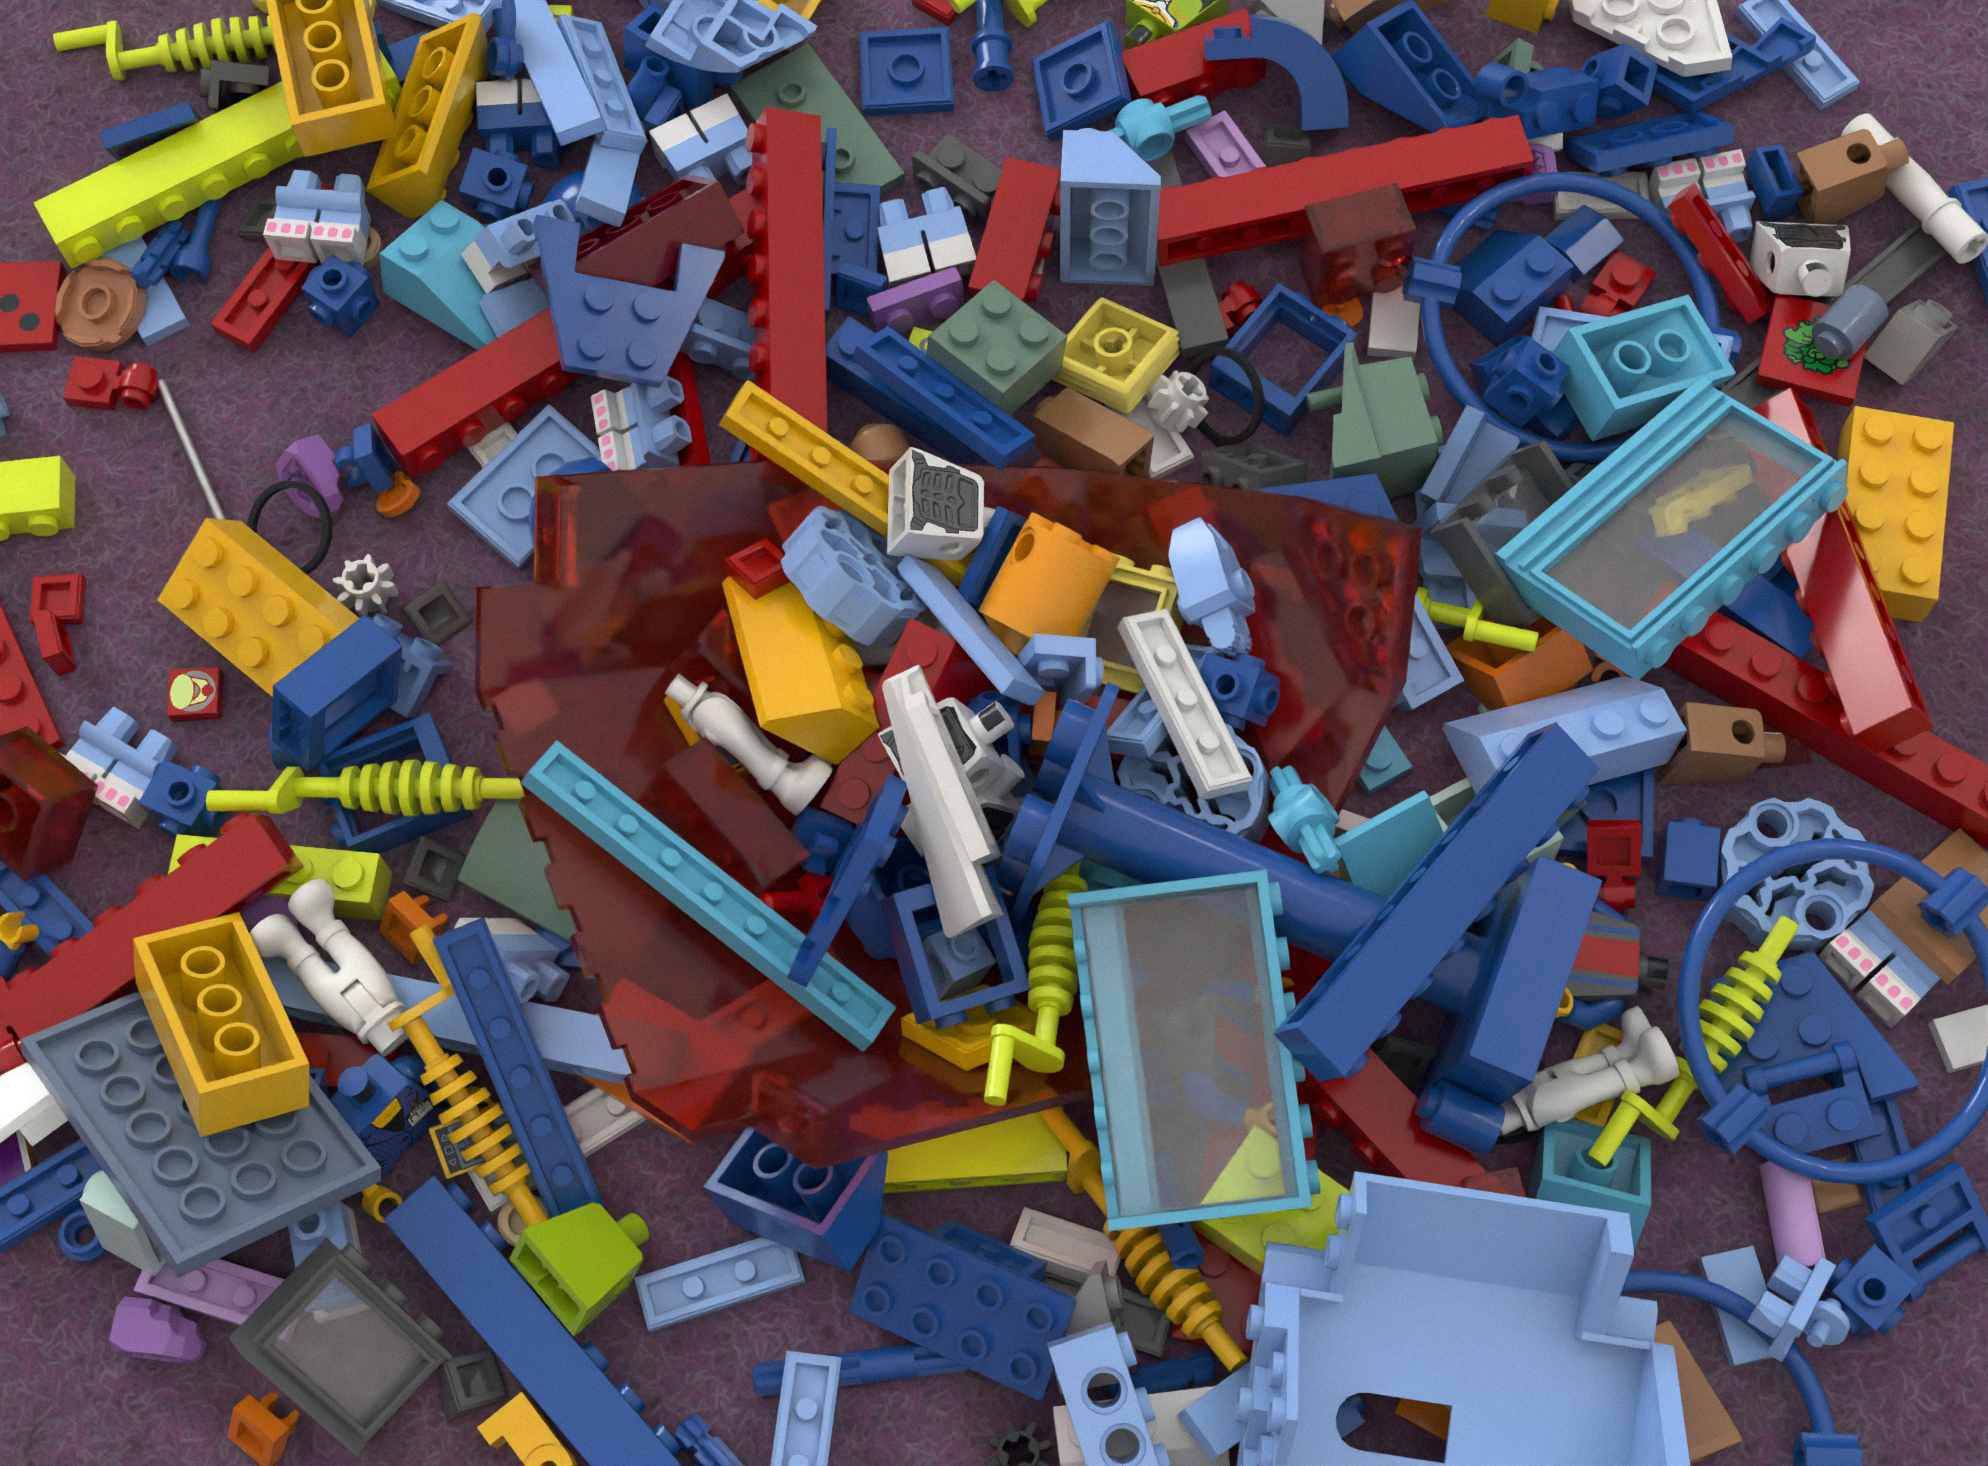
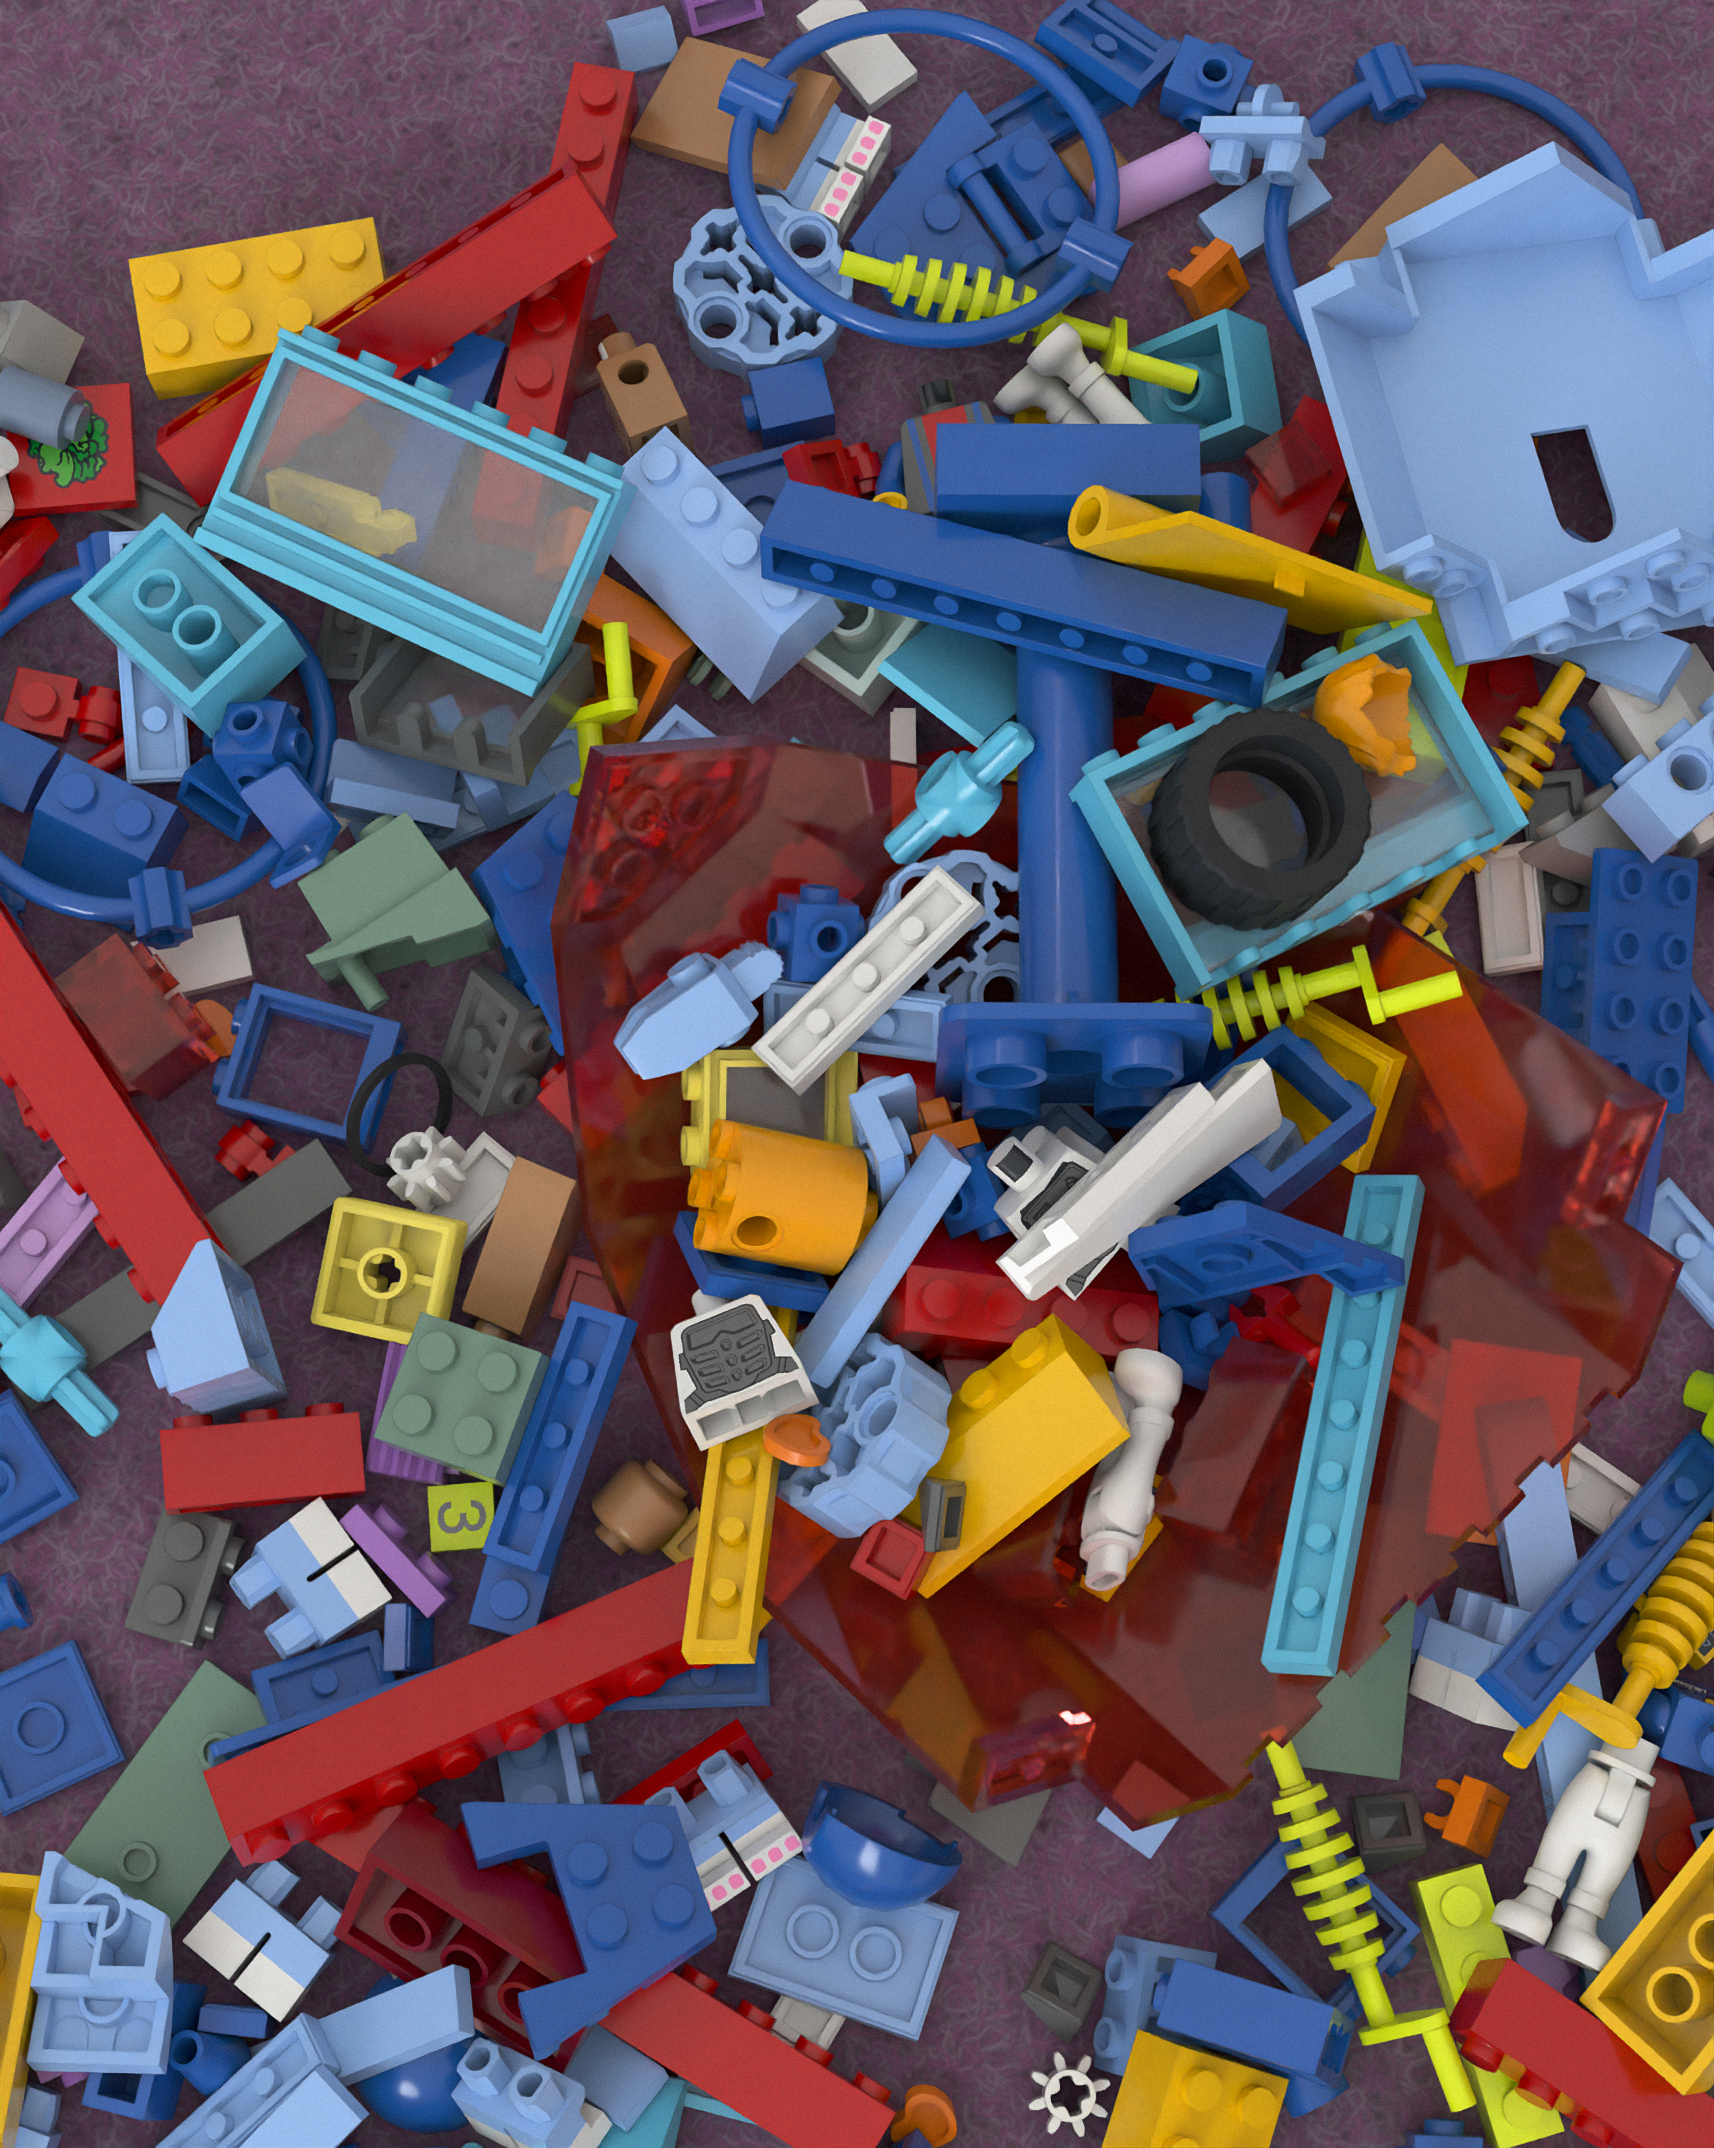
camera: 115 degrees left, 10 degrees up
(769, 594) = (941, 1512): none -> dark grey slope
(865, 522) = (796, 1440): none -> orange piece
(1204, 928) = (1315, 775): none -> black tyre
(1241, 1130) = (1368, 711): none -> light orange hair
(1412, 1066) = (1235, 562): none -> yellow door
(1463, 383) = (293, 818): none -> blue bracket
(1687, 1228) = (1210, 280): none -> orange tile

